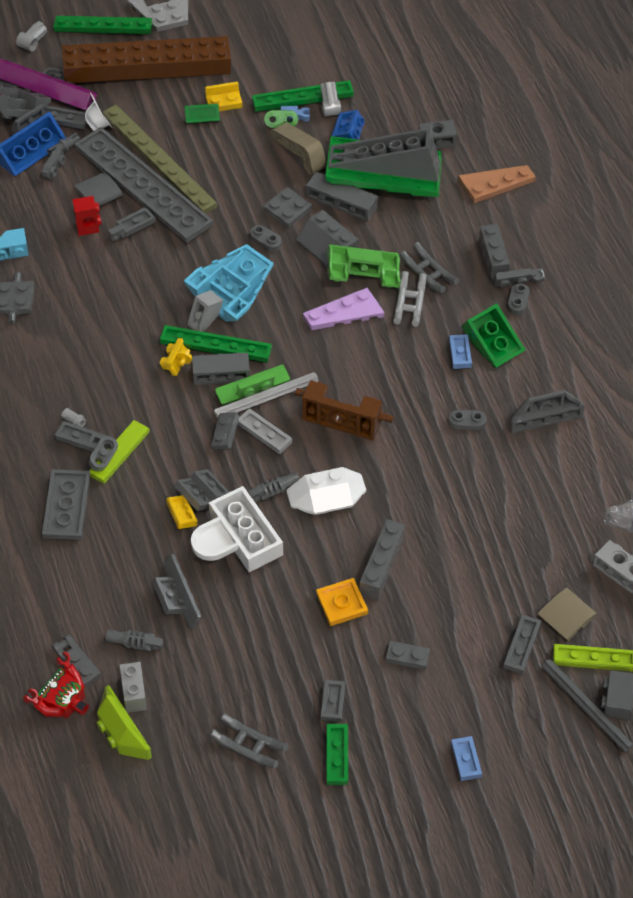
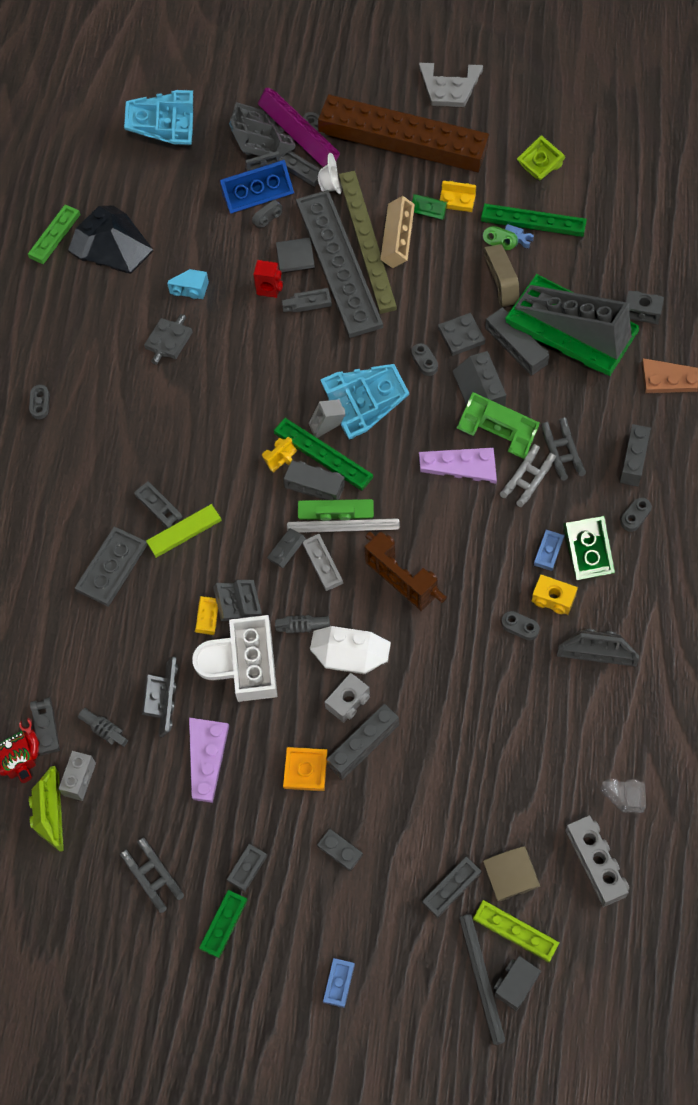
camera: 30 degrees right, 10 degrees up
(30, 39) = (308, 77): light grey piece -> none
(64, 144) = (288, 197): dark grey pin -> none
(73, 418) = (159, 481): light grey pin -> none
(95, 24) = (384, 82): green plate -> none
(101, 454) = (163, 529): dark grey plate -> none
(185, 141) = (397, 232): none -> tan brick
(244, 627) = (206, 754): none -> lavender wing
(283, 44) = (541, 158): none -> lime slope
(330, 105) = (555, 237): light grey piece -> none
(349, 125) = (561, 268): blue bracket -> none
(352, 521) = (349, 687): none -> light grey brick
(484, 384) = (547, 586): none -> yellow brick
(522, 276) = (648, 492): dark grey hinge -> none

